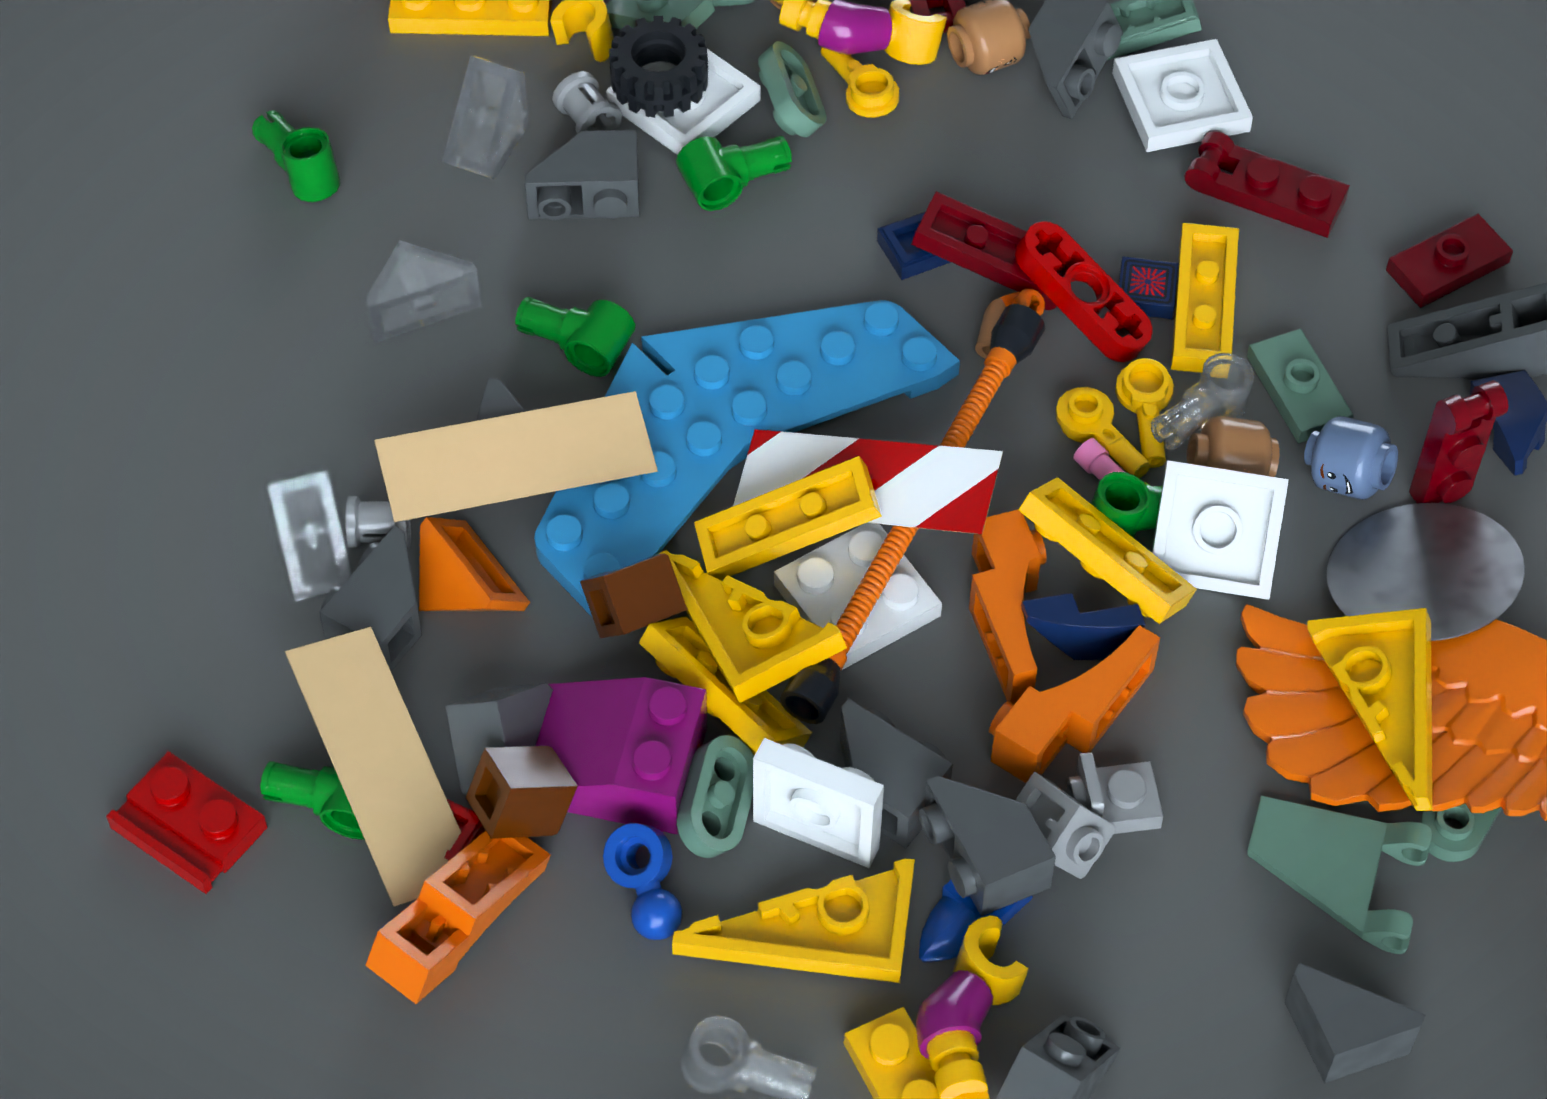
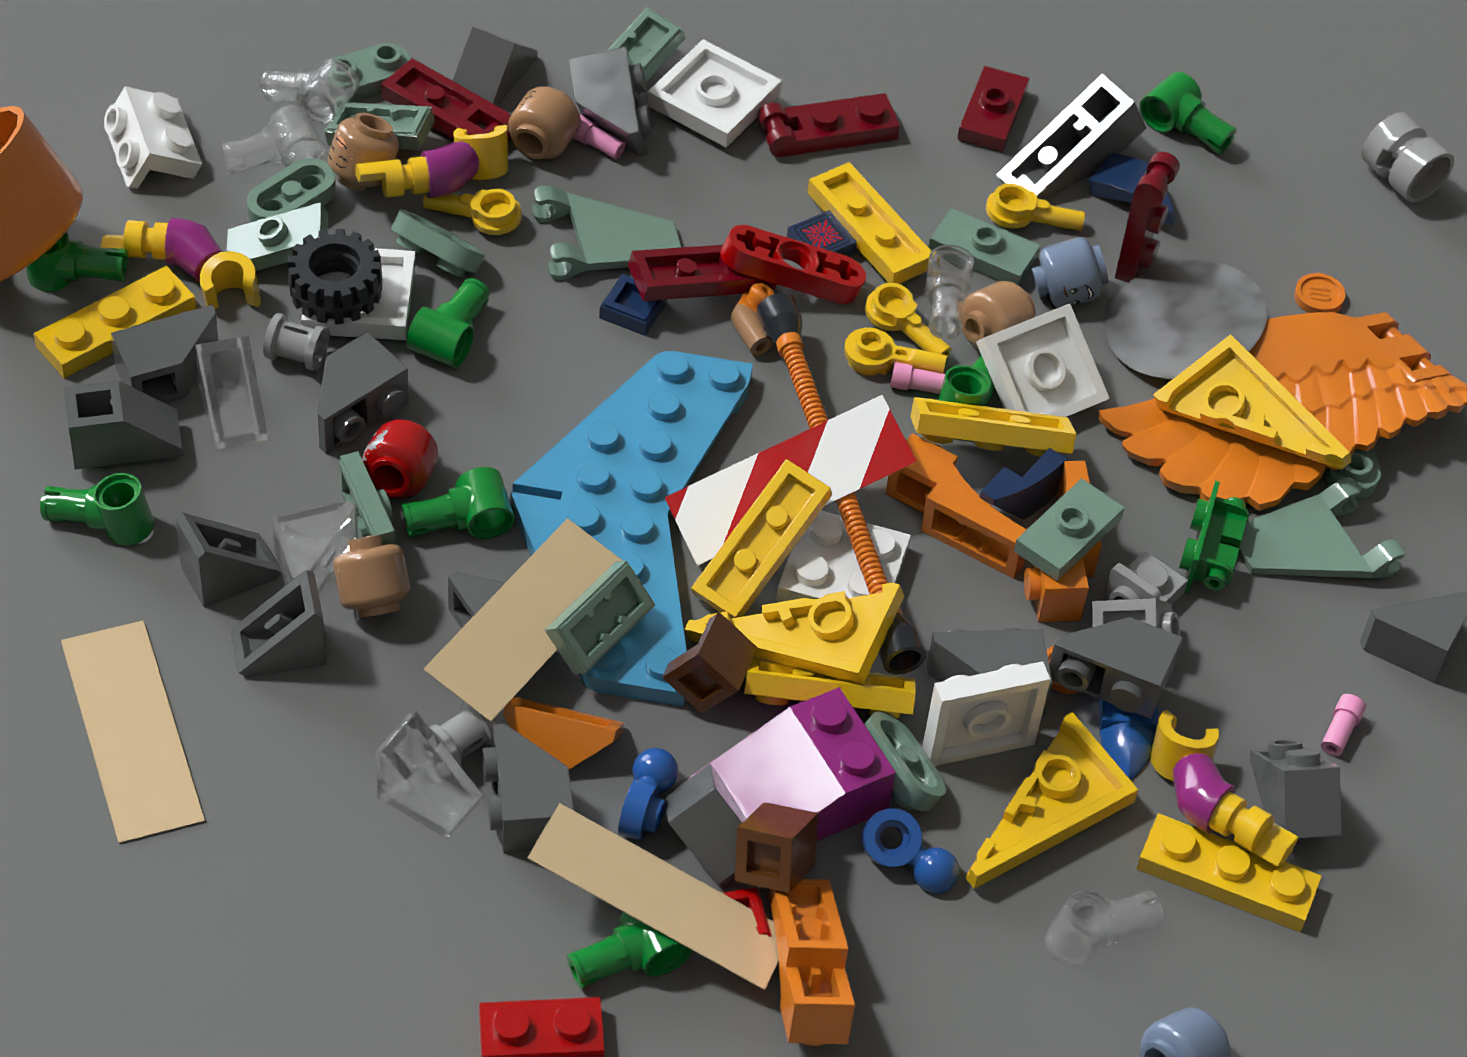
camera: 45 degrees left, 5 degrees down
(151, 352) = (132, 731): none -> tan sticker
(333, 345) = (283, 631): none -> dark grey slope
(339, 248) = (222, 558): none -> dark grey slope
(370, 91) = (119, 425): none -> dark grey slope
(435, 340) = (371, 577): none -> medium nougat head
(450, 40) = (162, 353): none -> dark grey slope
(461, 676) = (642, 810): none -> blue plate
(497, 284) = (372, 506): none -> sand green plate
(565, 257) = (401, 458): none -> red head
(572, 493) = (600, 617): none -> sand green plate
(951, 165) = (602, 230): none -> sand green flag
(1030, 70) = (591, 134): none -> bright pink piece
(1068, 688) = (1069, 529): none -> sand green plate
(1192, 1048) = (1346, 716): none -> bright pink piece
(1203, 803) = (1217, 522): none -> green hinge
(1367, 364) = (1016, 207): none -> yellow plate

